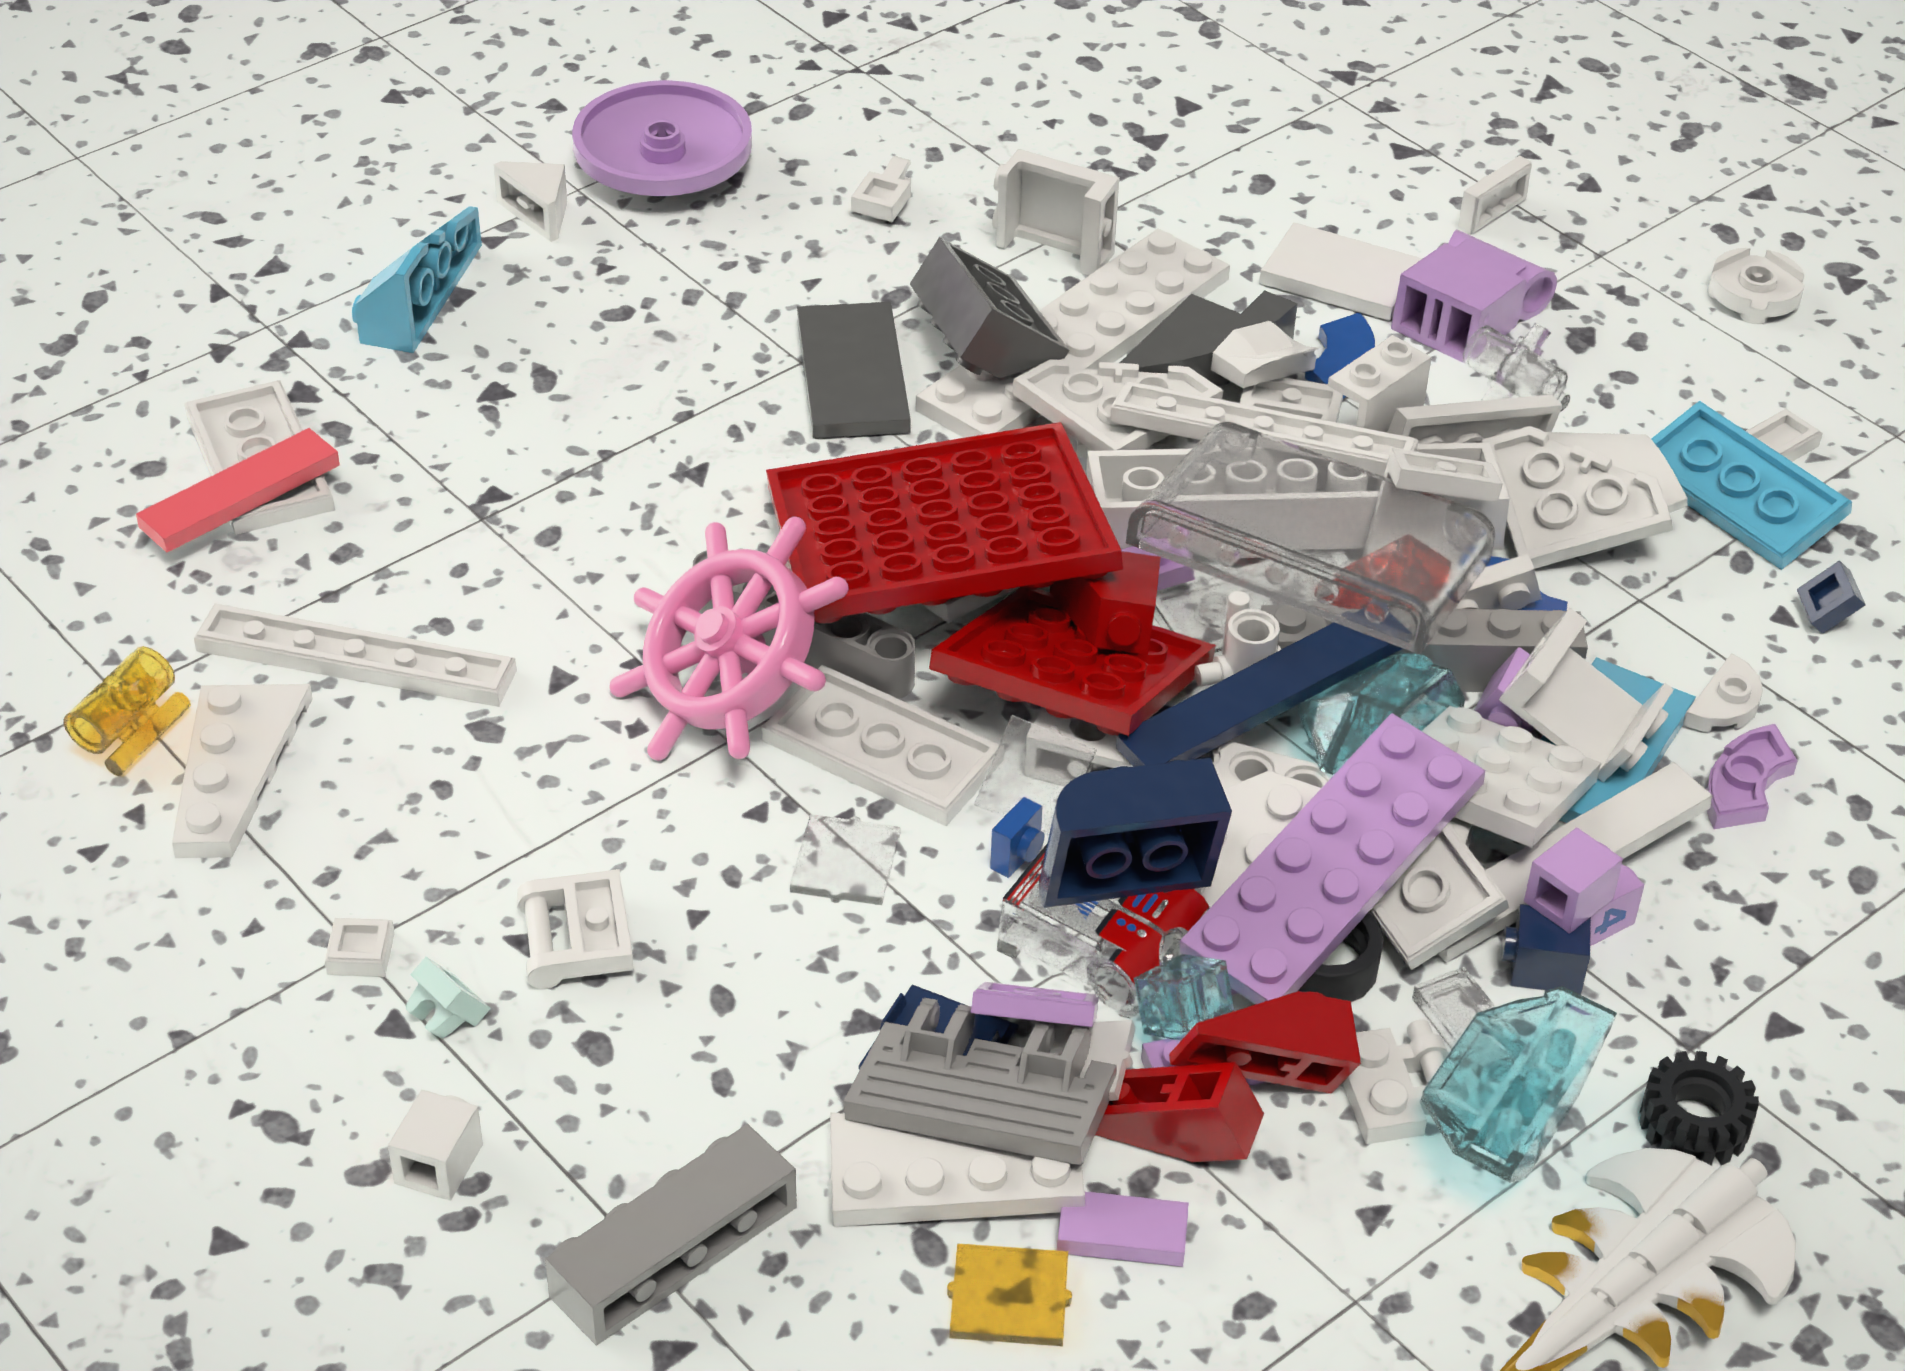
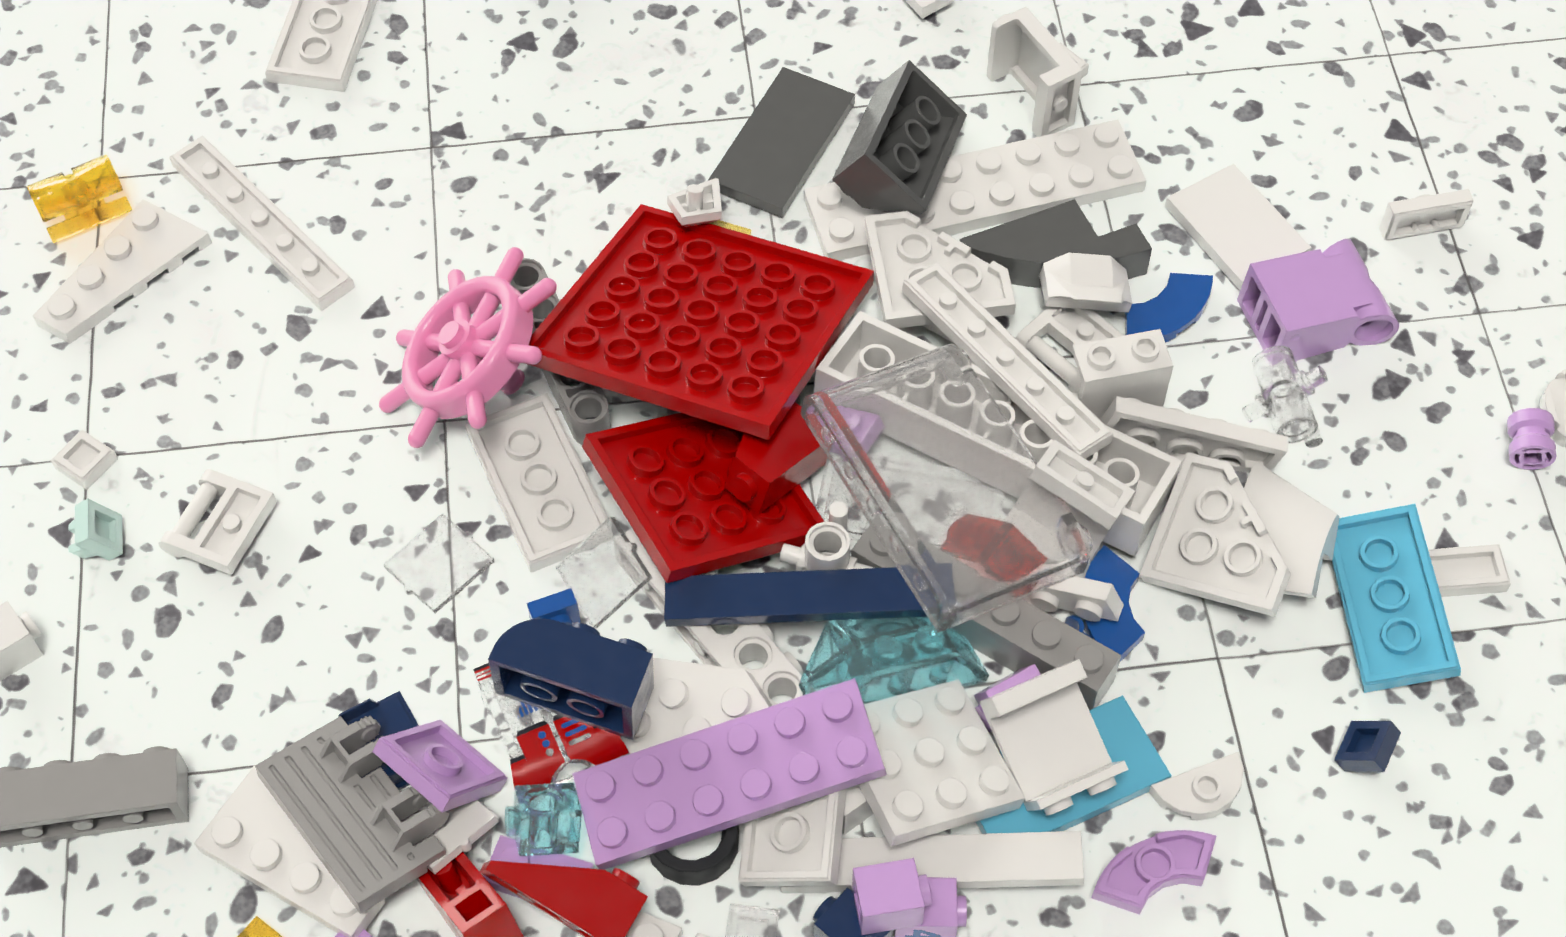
camera: 35 degrees right, 15 degrees up
(237, 490) = (280, 49): coral tile -> none
(831, 442) = (697, 203): none -> white piece
(1738, 320) = (1531, 438): none -> lavender wheel

